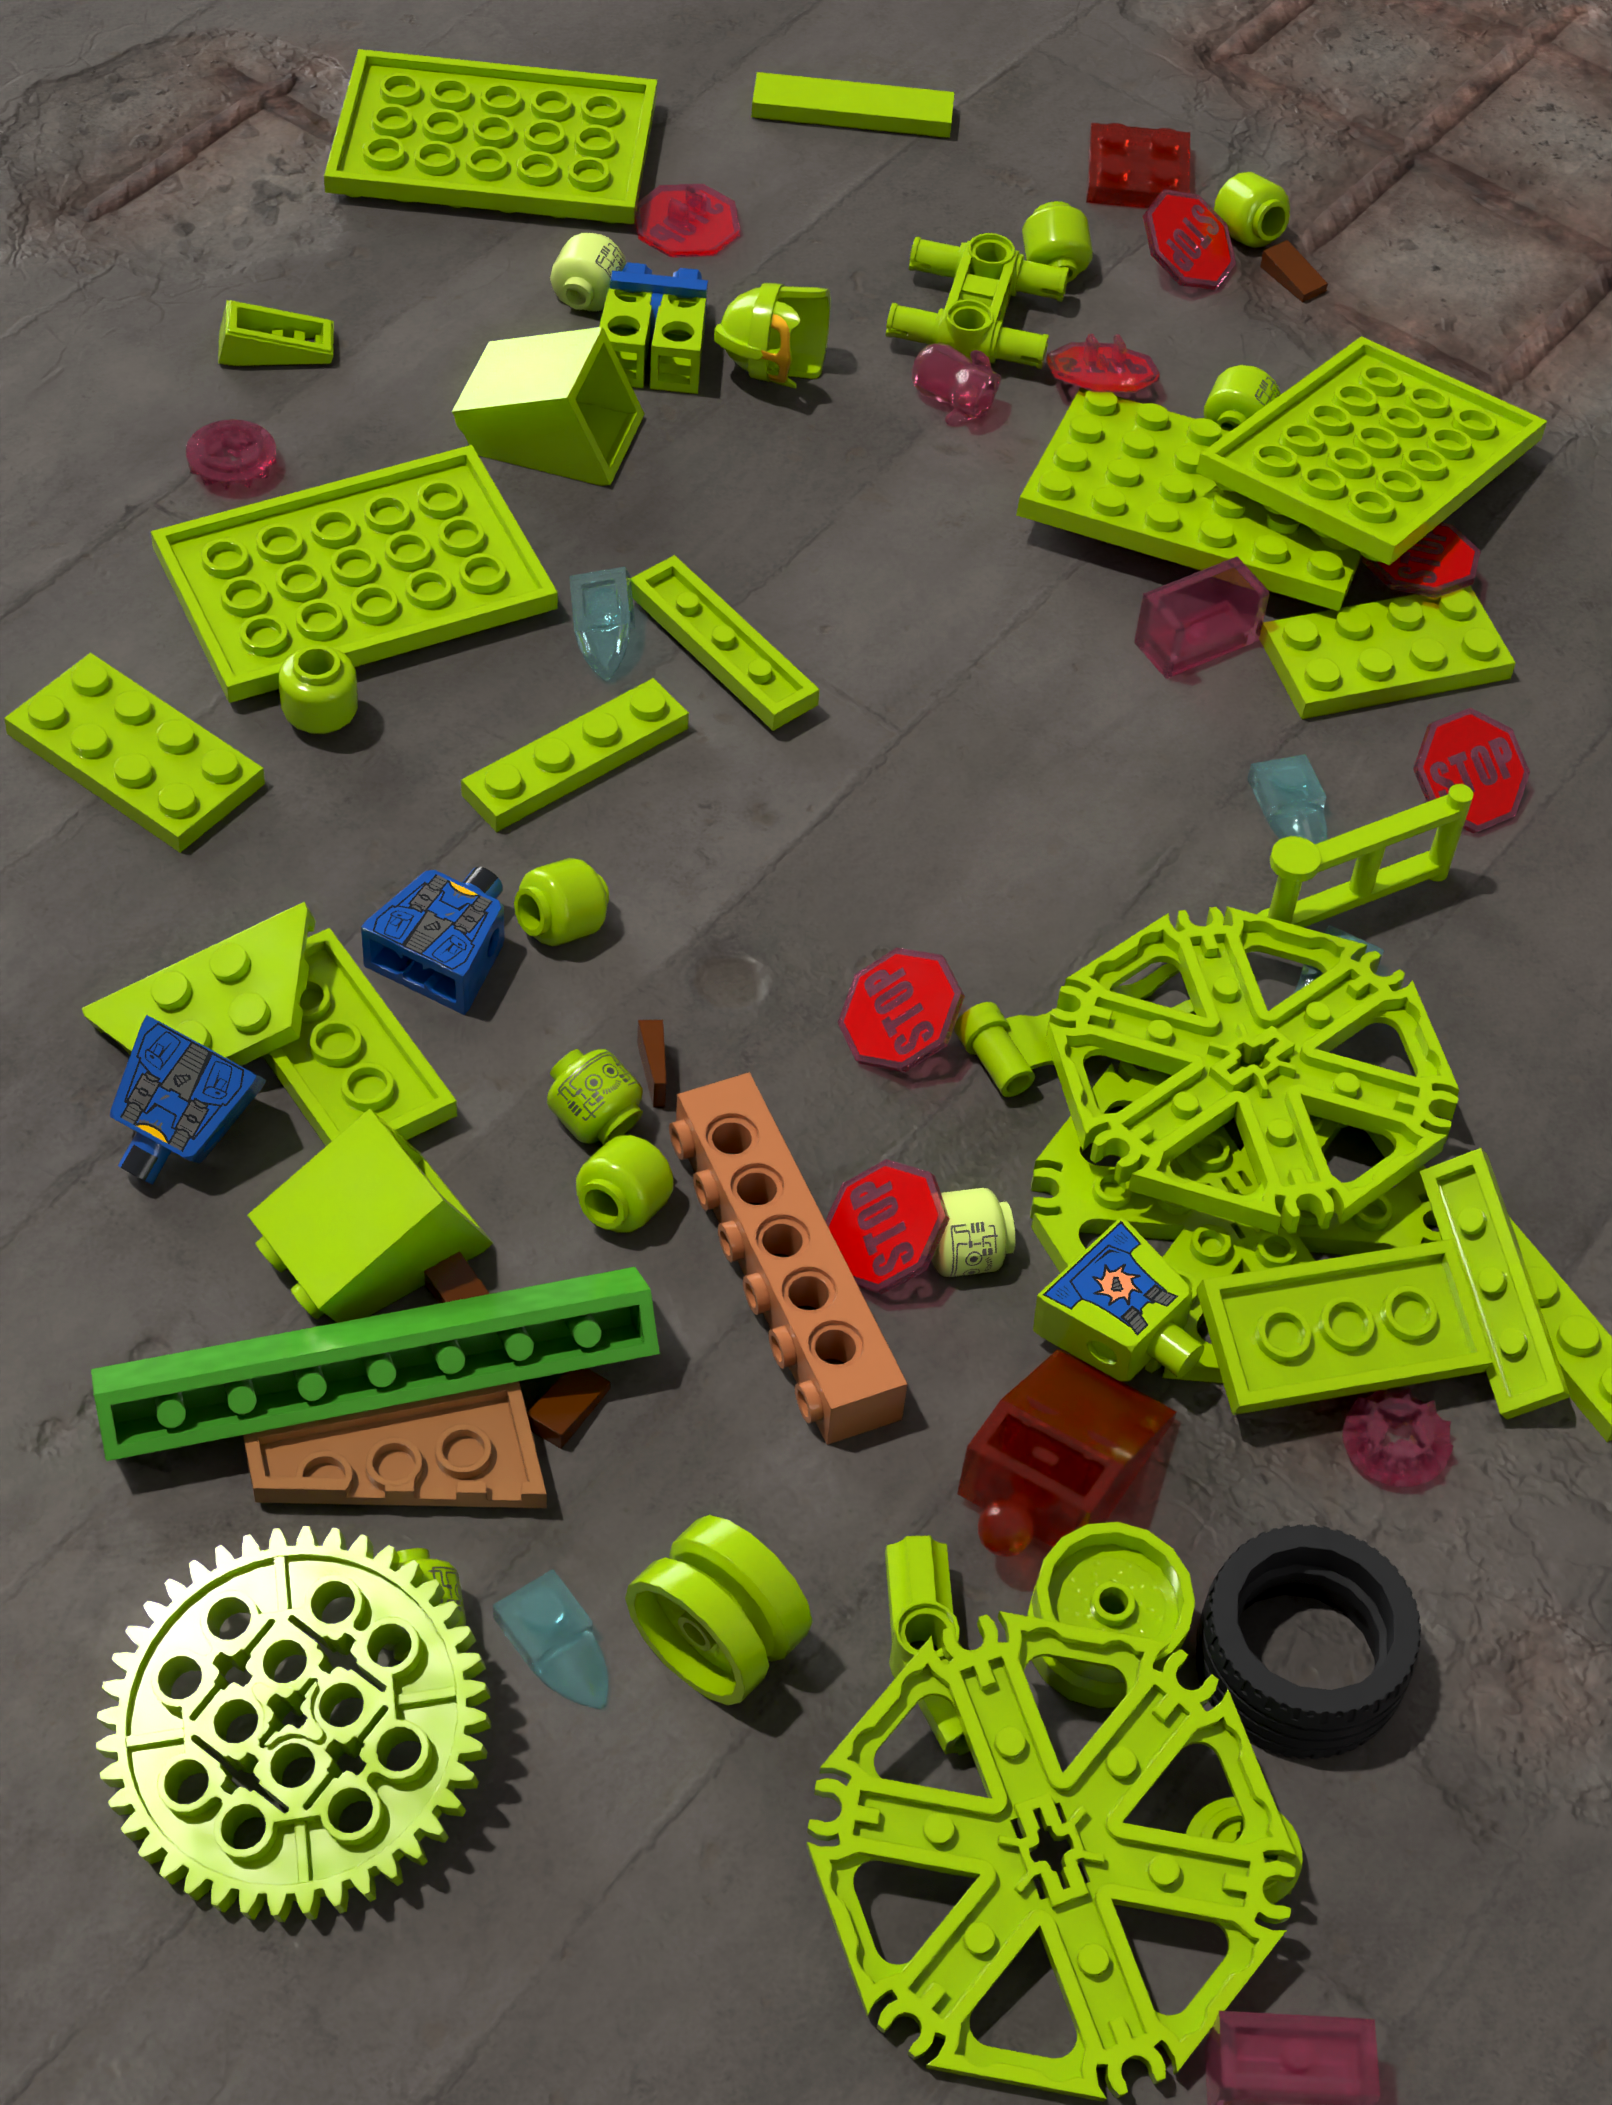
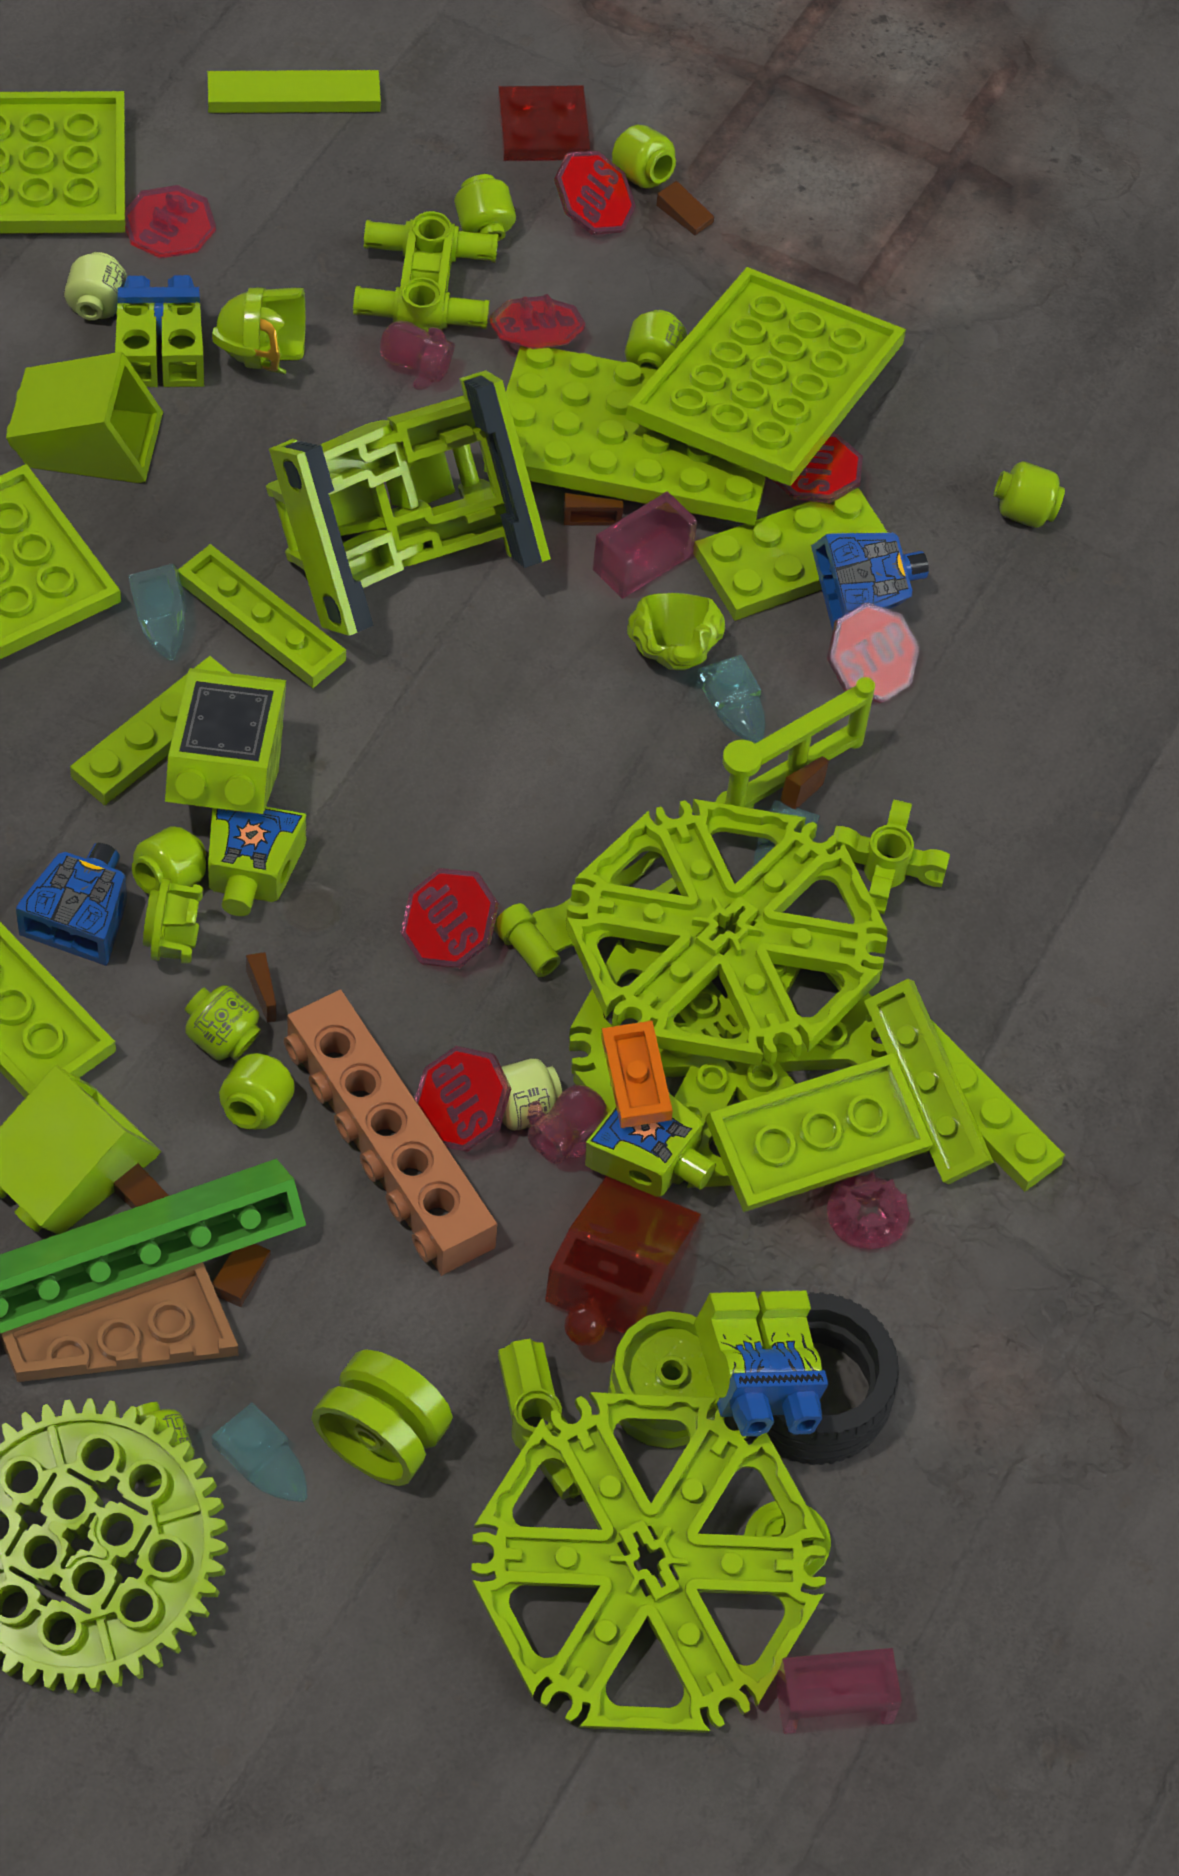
camera: 10 degrees left, 5 degrees up
(547, 966) = (171, 921): none -> lime piece
(654, 766) = (226, 741): none -> lime slope
(667, 903) = (253, 855): none -> lime torso
(836, 507) = (342, 492): none -> lime container
(1014, 1277) = (567, 1124): none -> clear pink animal
(1113, 1218) = (636, 1074): none -> orange plate
(1138, 574) = (591, 511): none -> reddish brown piece
(1228, 713) = (676, 628): none -> lime hair
(1238, 1599) = (762, 1359): none -> hips
(1369, 908) = (804, 783): none -> reddish brown piece
(1471, 668) = (865, 569): none -> torso
(1471, 1006) = (897, 842): none -> lime pin

